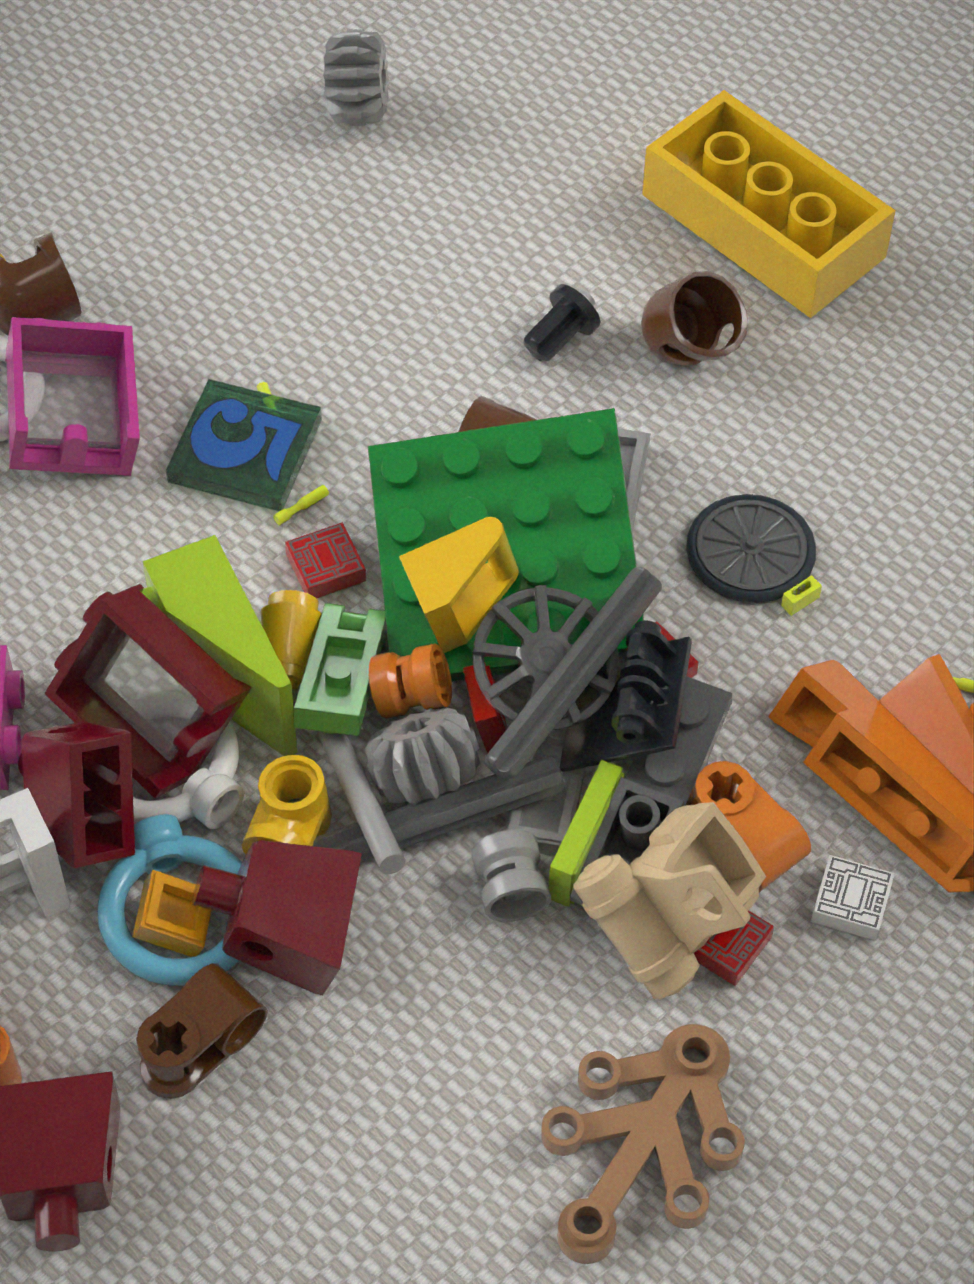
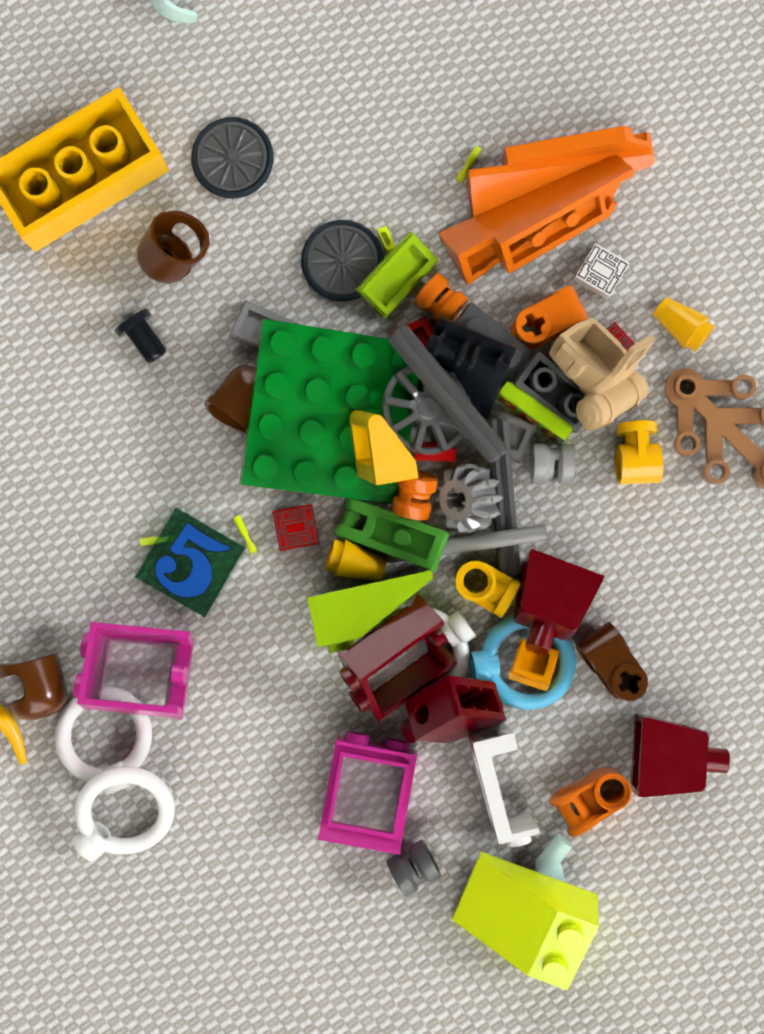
camera: 75 degrees left, 30 degrees up
(552, 1002) = (638, 459): none -> yellow piece
(733, 664) = (448, 306): none -> orange wheel
(750, 613) = (397, 274): none -> lime tile
(802, 1035) = (684, 323): none -> yellow cone
(857, 388) = (232, 157): none -> dark grey wheel

